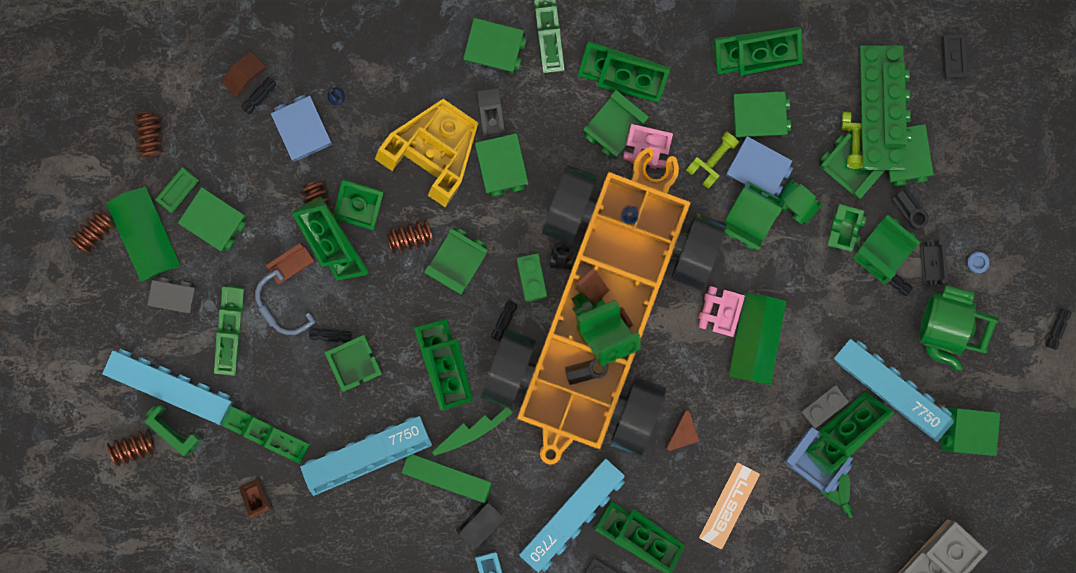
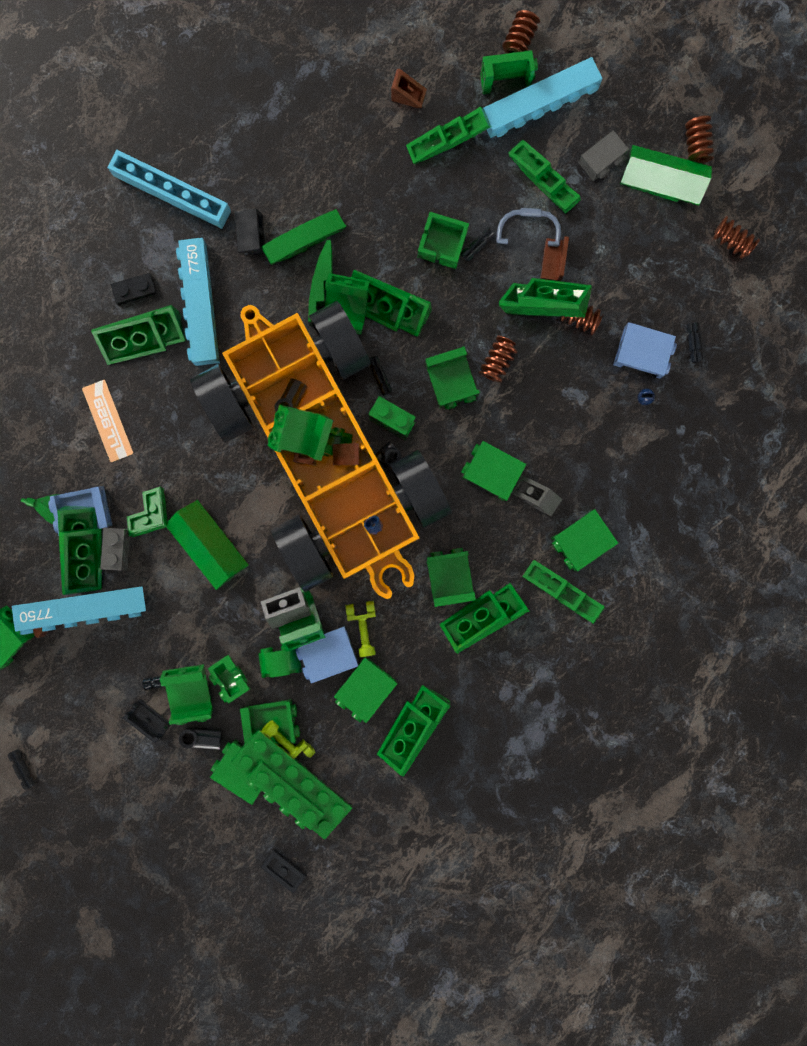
camera: 130 degrees right, 0 degrees up
(177, 190) = (676, 226): green tile -> none
(213, 220) = (633, 231): green brick -> none
(242, 74) = (720, 344): copper slope -> none
(358, 204) = (554, 344): green slope -> none
(366, 455) = (370, 193): medium azure brick -> none
(436, 142) = (549, 439): yellow wedge -> none
(465, 396) = (351, 295): none -> green panel
(644, 137) = (419, 592): bright pink plate -> none
(684, 433) = (185, 431): copper slope -> none
(728, 311) = (243, 538): bright pink plate -> none
(752, 231) = (285, 608): none -> dark grey brick
(773, 399) = (153, 516): none -> green tile
(951, 324) = (90, 693): green piece -> none
(978, 262) = (120, 753): medium blue tile -> none

